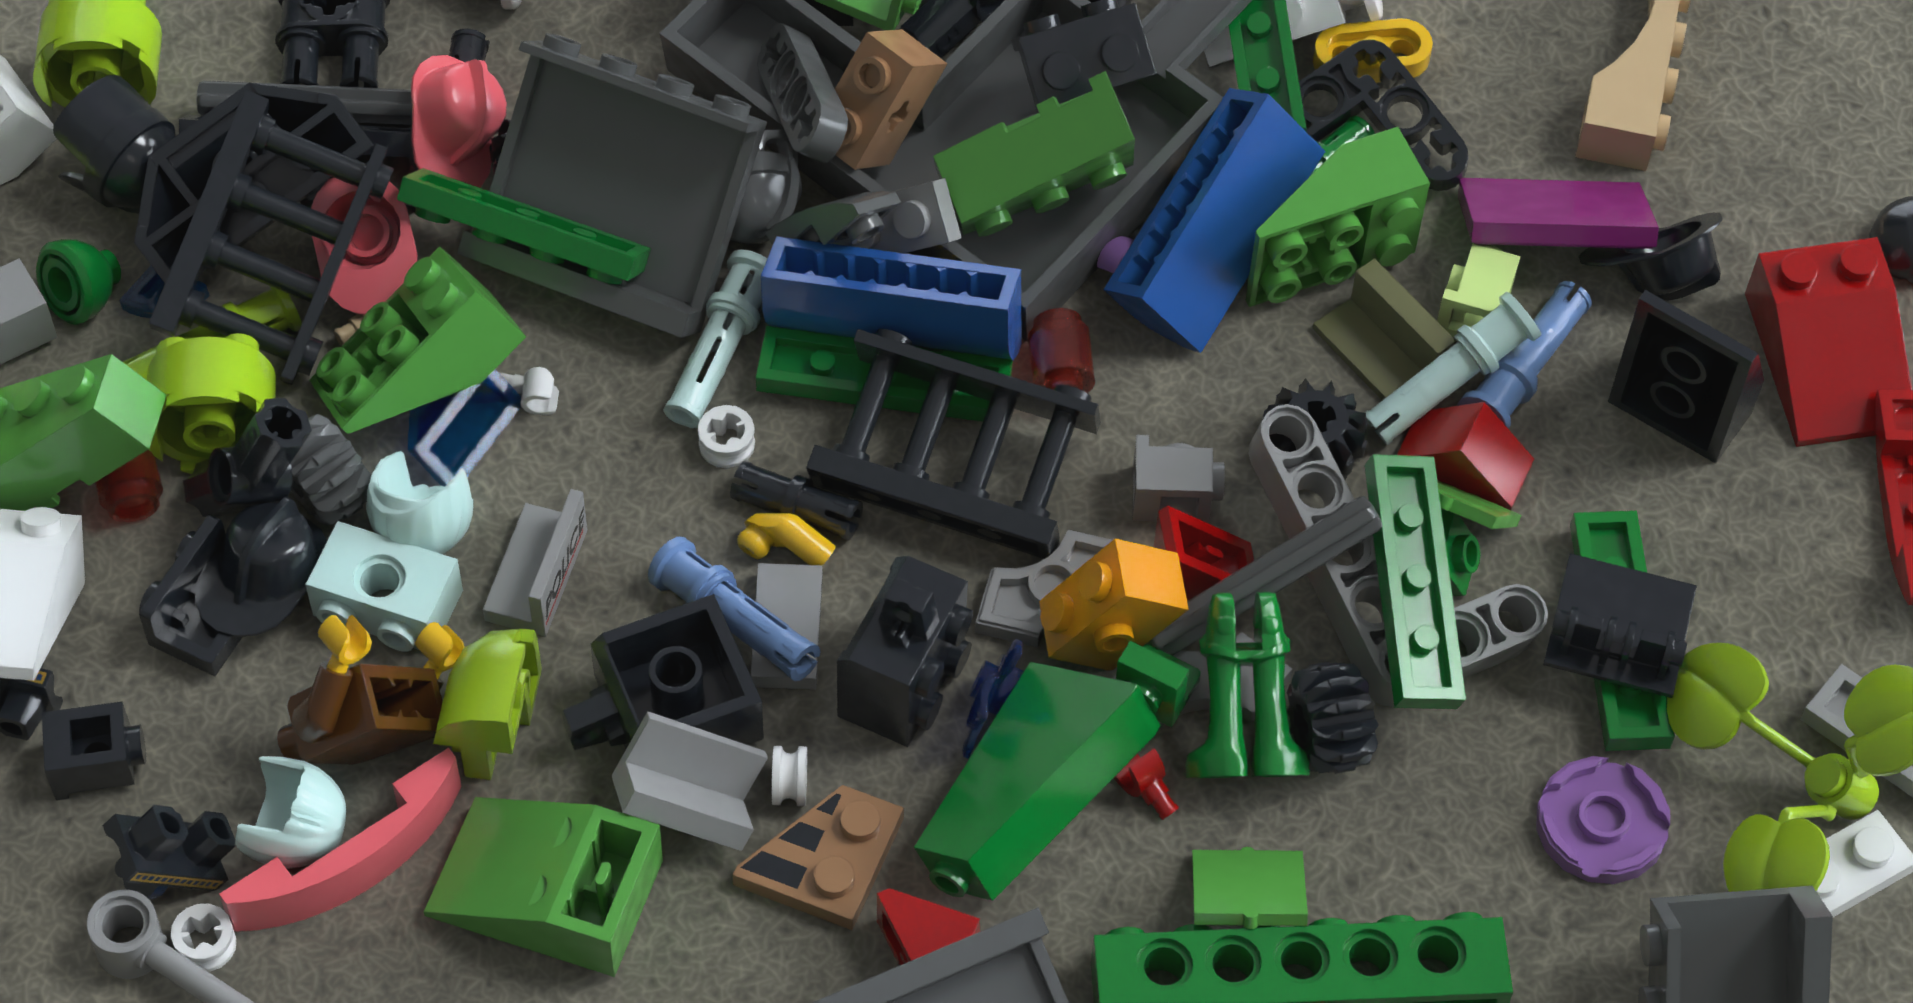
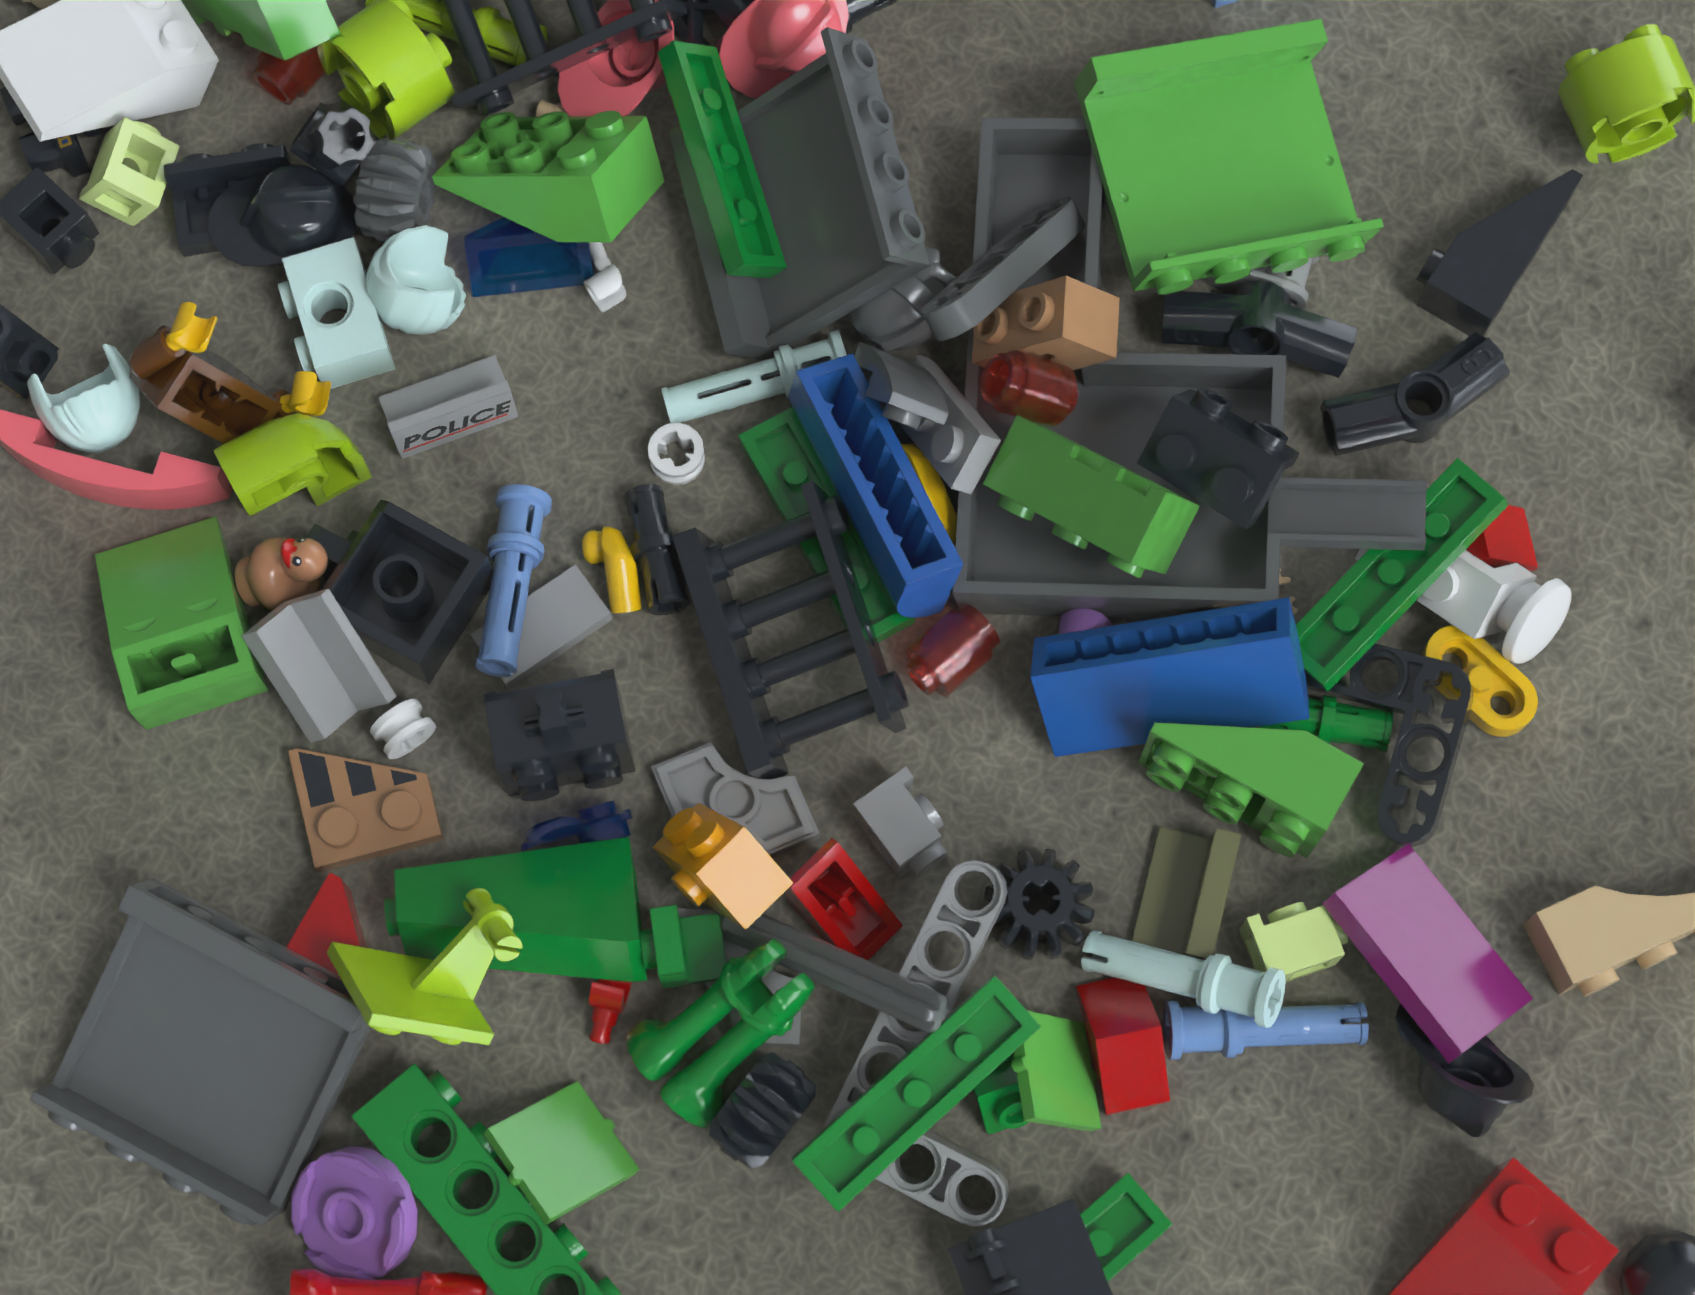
camera: 55 degrees right, 15 degrees up
(109, 654) = (129, 171): none -> yellowish green brick
(580, 770) = (280, 571): none -> nougat animal
(915, 134) = (1030, 387): none -> clear red brick
(1061, 861) = (427, 994): none -> lime plate
(1686, 378) = (1336, 1179): black slope -> none

